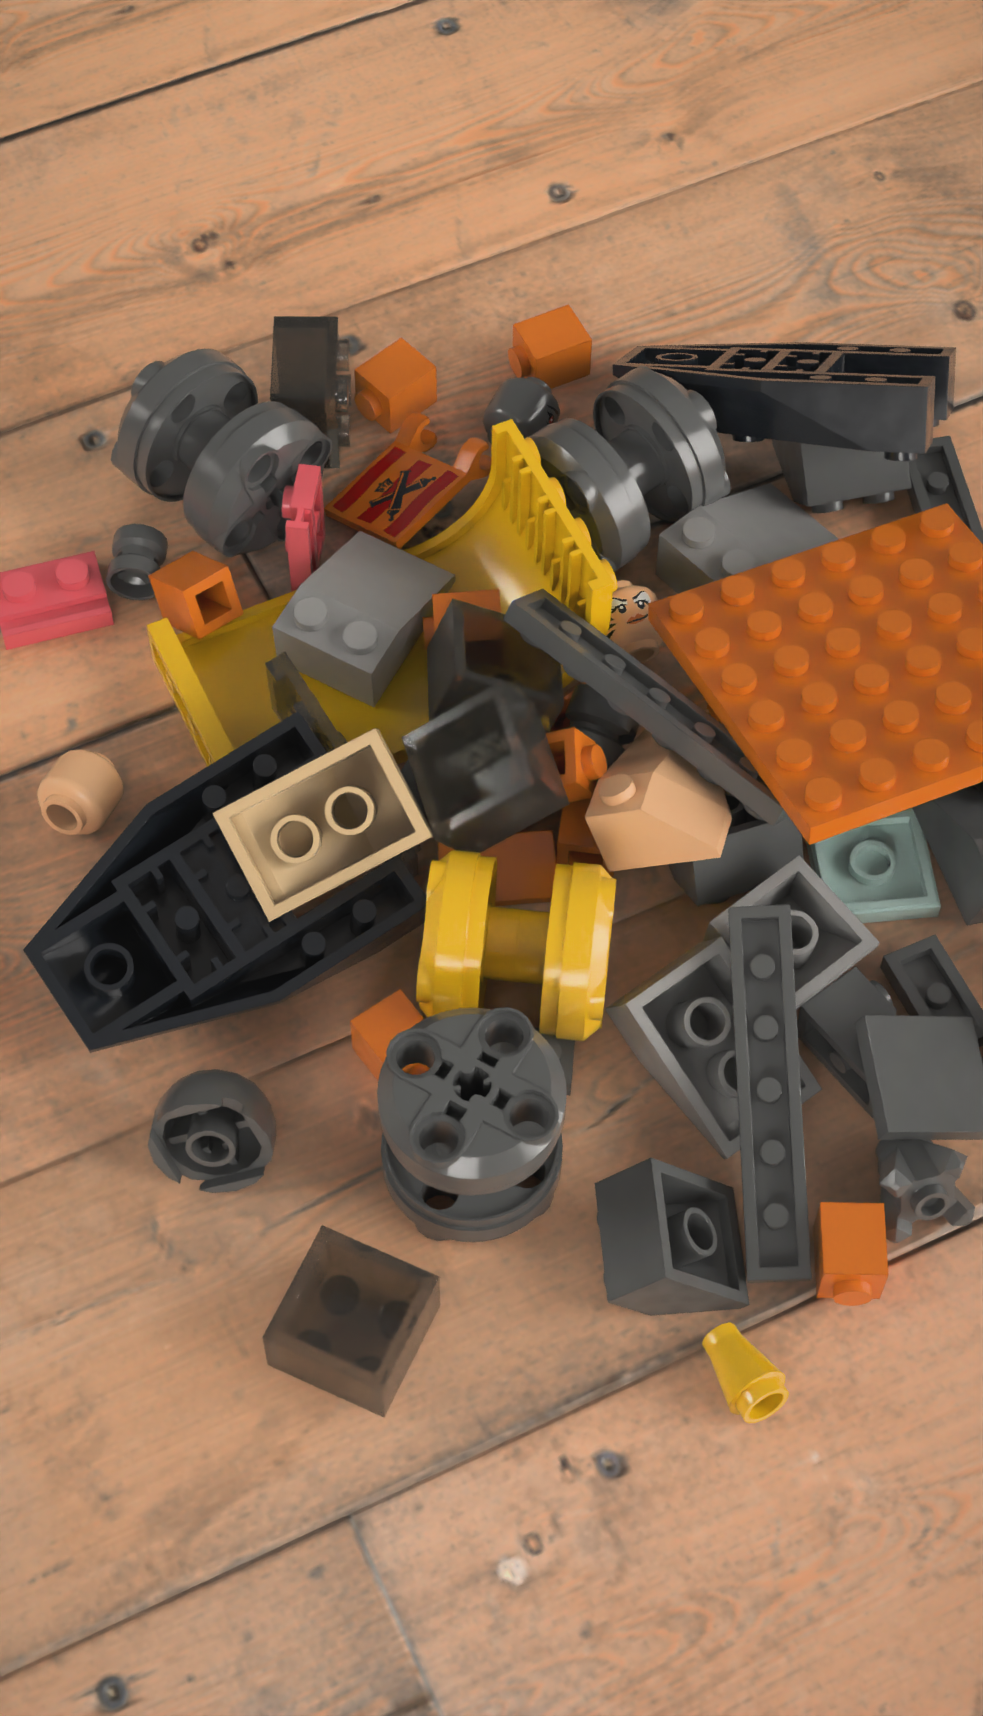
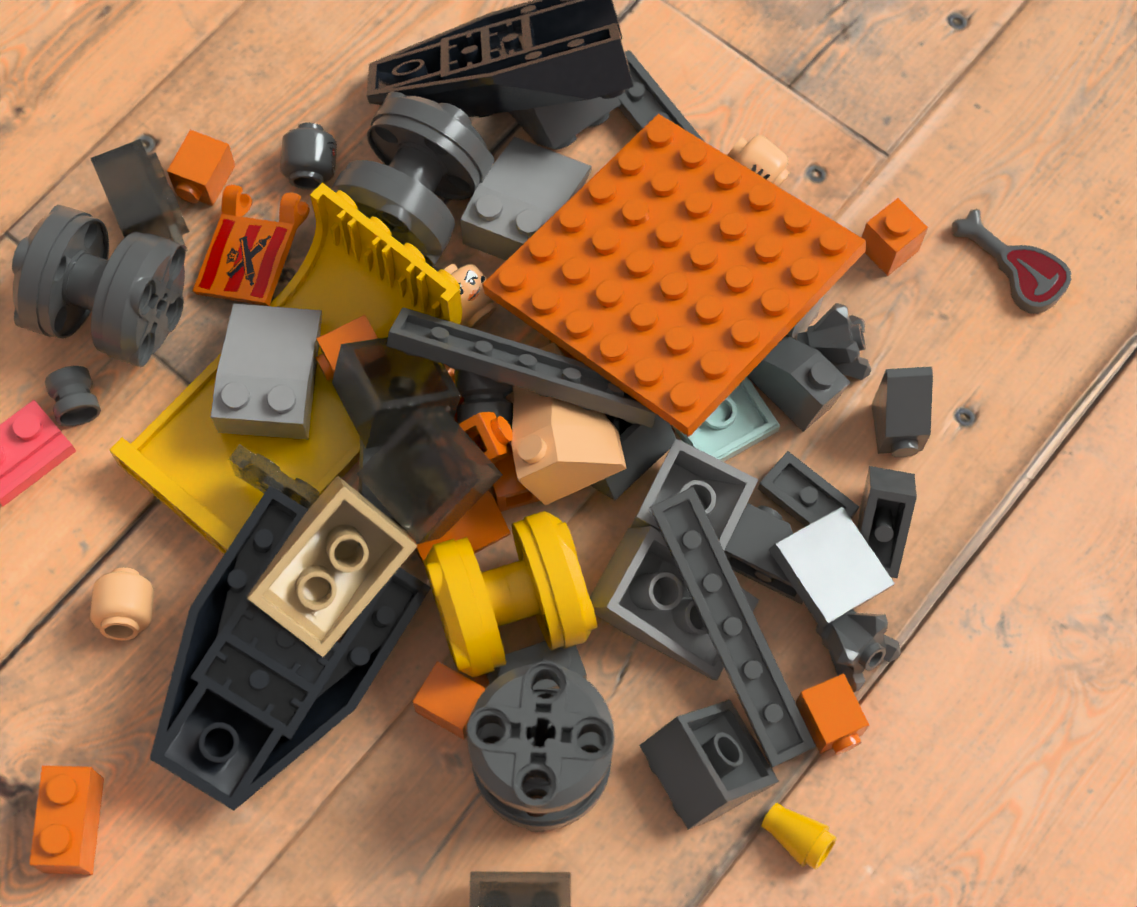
camera: 25 degrees left, 10 degrees up
(196, 594) = (133, 407): orange brick -> none
(213, 1131) = (352, 825): dark grey cylinder -> none
(307, 525) = (190, 318): coral plate -> none
(551, 347) = (305, 91): orange brick -> none

